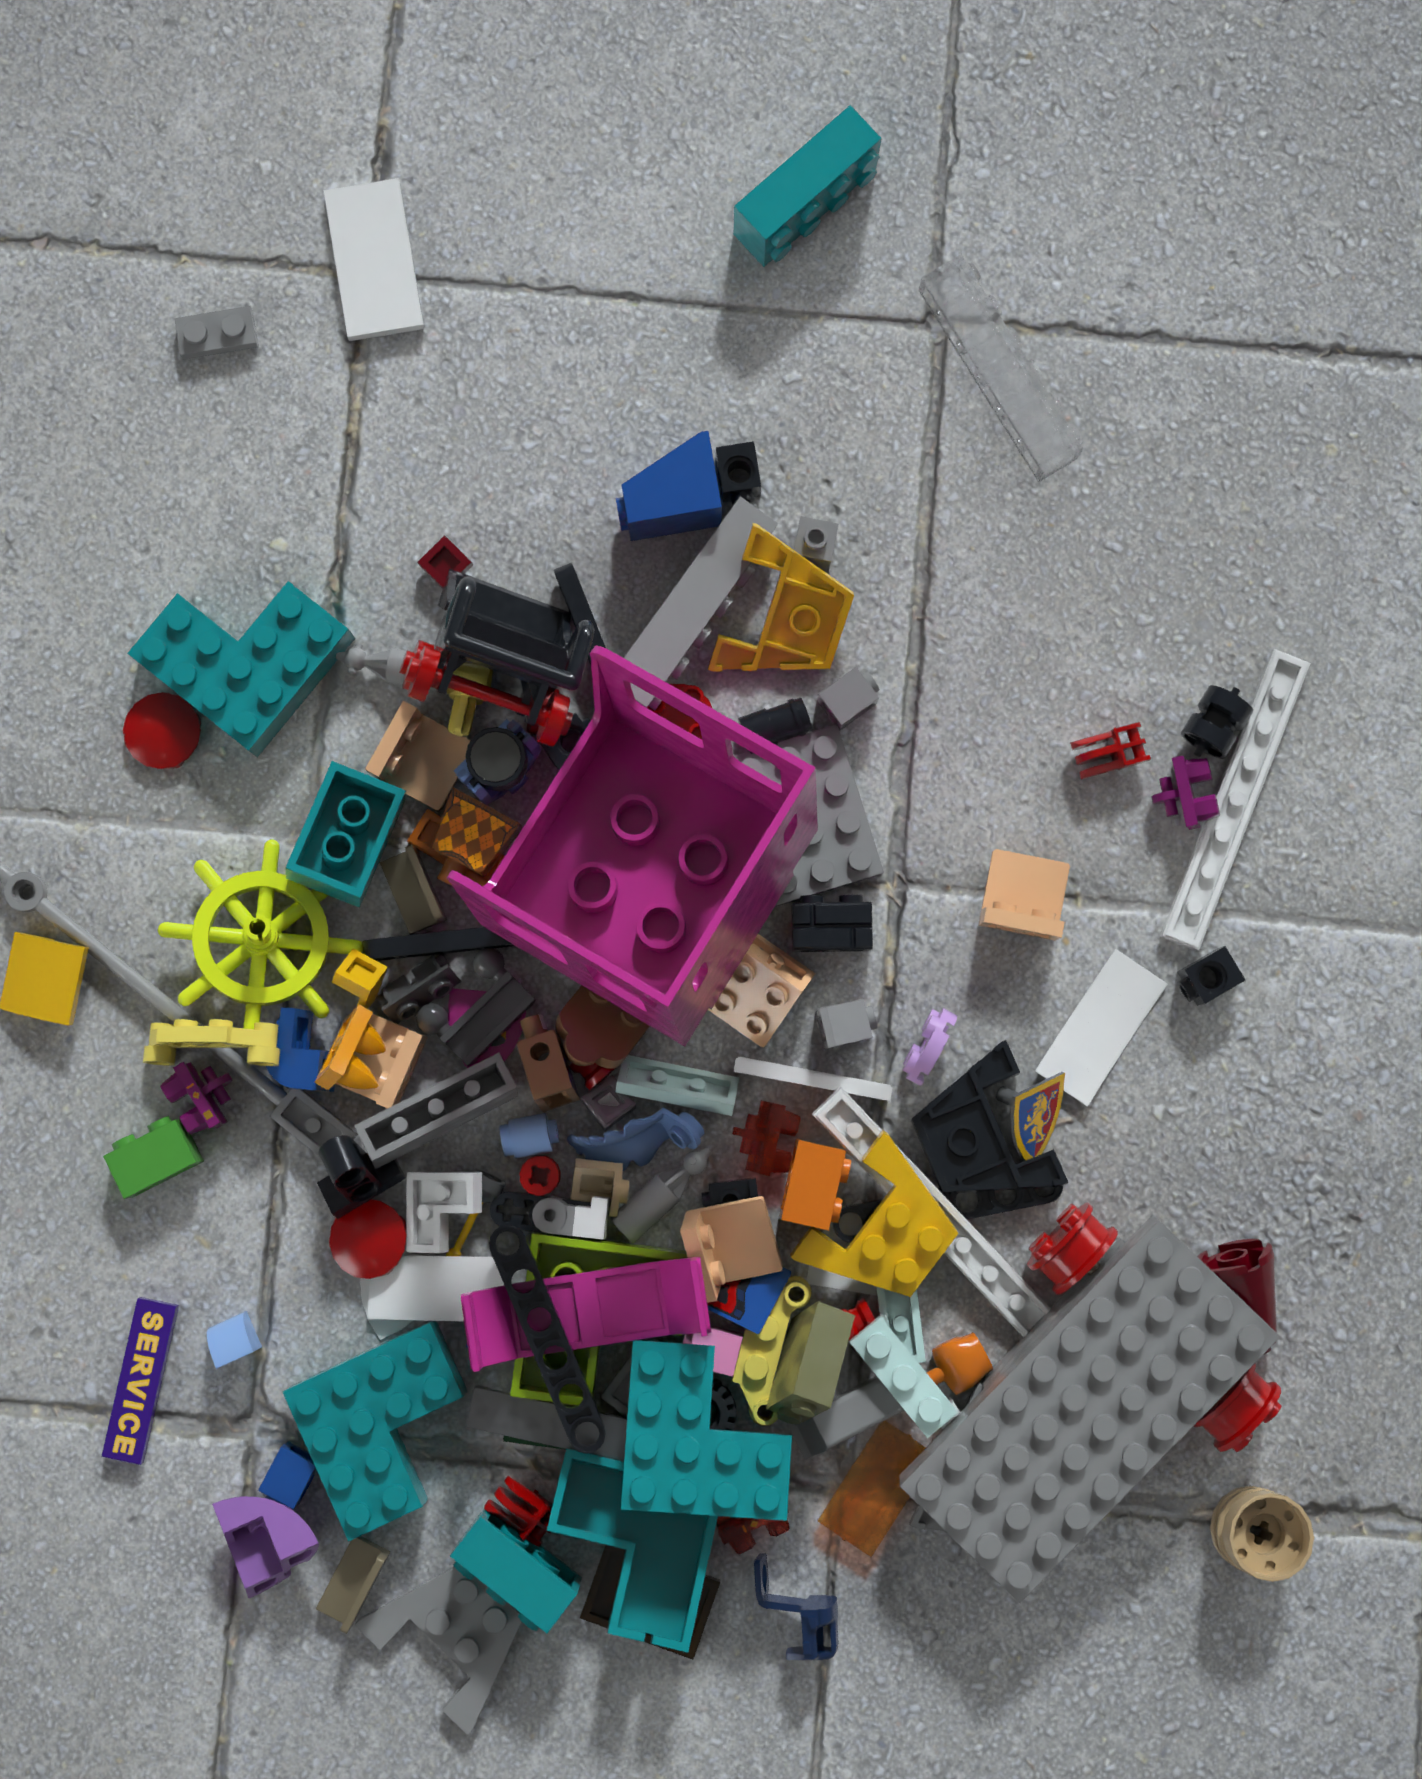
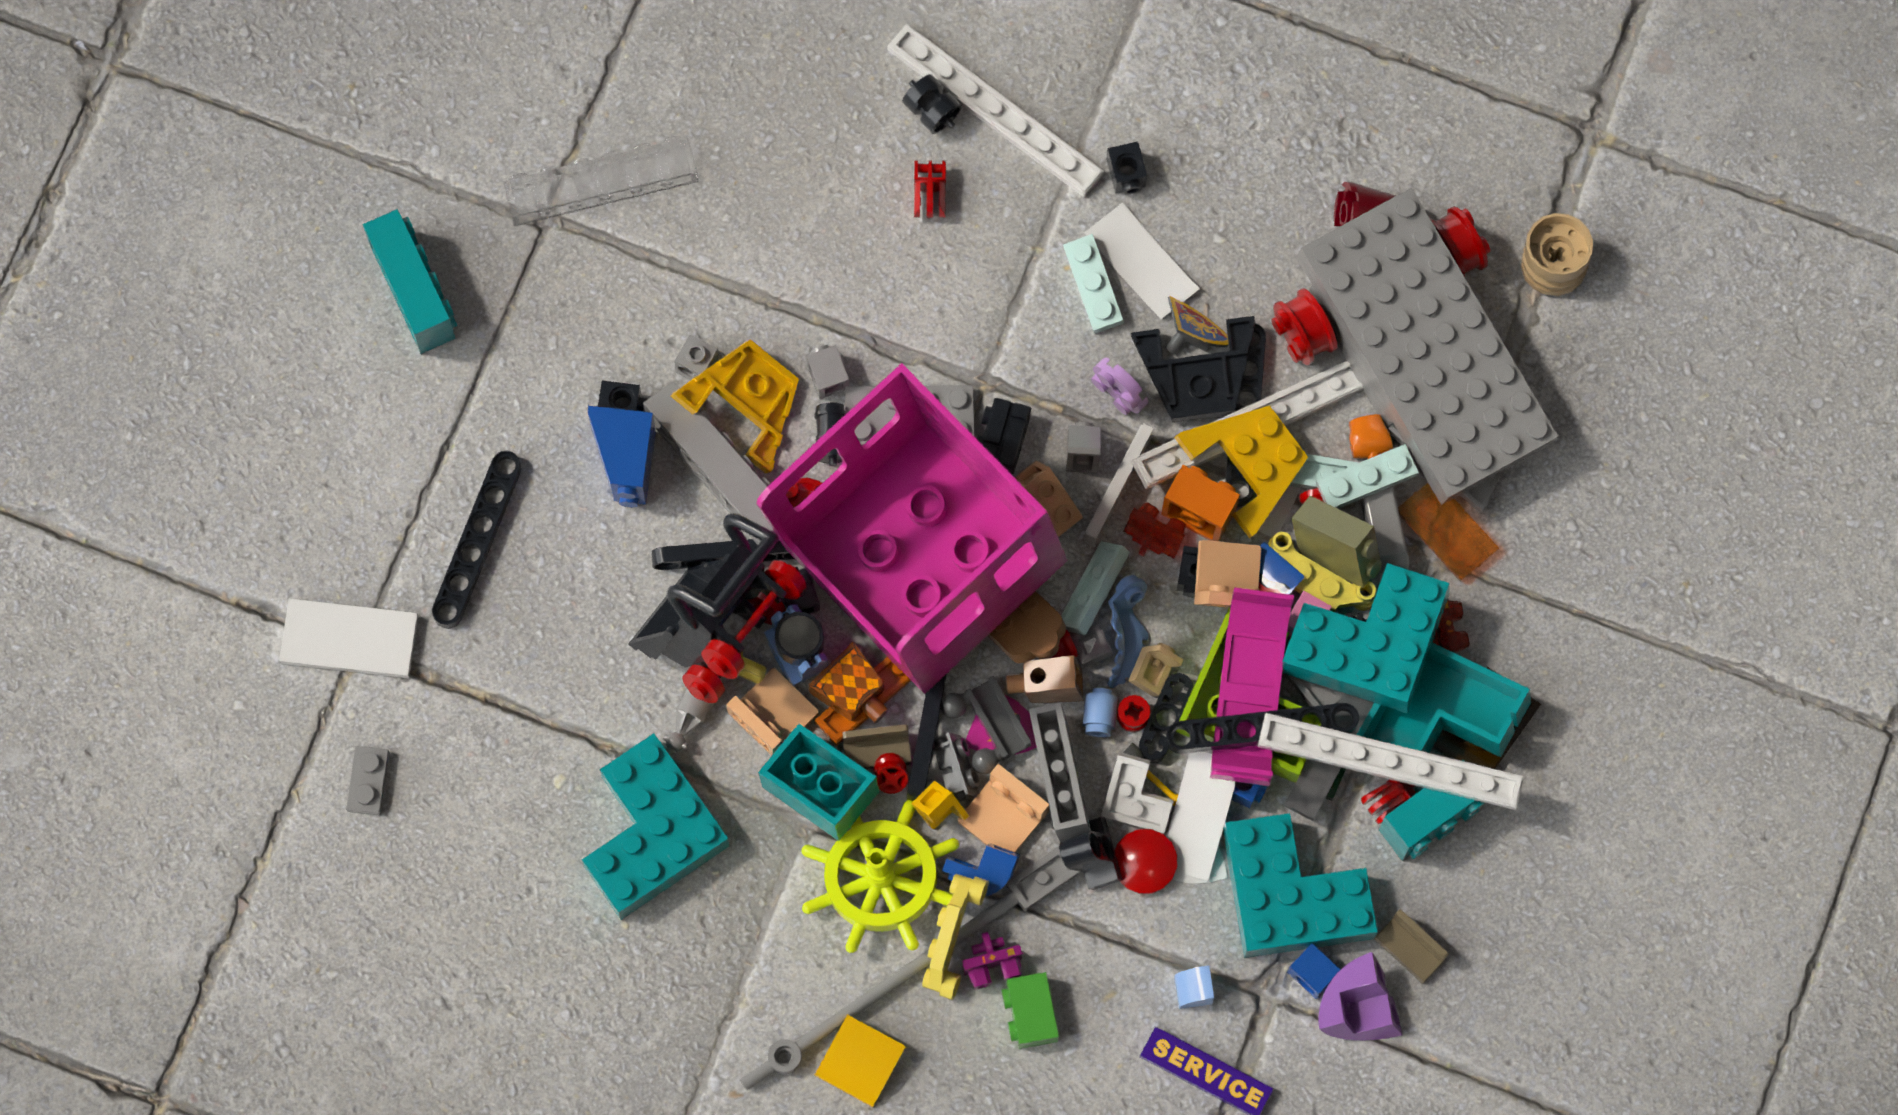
camera: 75 degrees left, 10 degrees down
(162, 730) = (685, 913): red dish -> none
(341, 1063) = (987, 825): light orange tile -> none
(385, 914) = (889, 781): none -> red wheel
(441, 558) = (617, 650): dark red plate -> none
(462, 1624) = (1466, 869): light grey wing -> none
(531, 356) = (471, 537): none -> black beam
(546, 1507) = (1390, 761): none -> white tile
(557, 1217) = (1171, 702): leg -> none
(658, 1196) = (1176, 628): light grey wheel -> none
(814, 1611) = (1530, 598): dark blue piece -> none
(1024, 895) = (1023, 285): light nougat bracket -> none
(1054, 978) = (1093, 283): none -> light aqua plate
(1194, 809) = (965, 138): magenta hips -> none

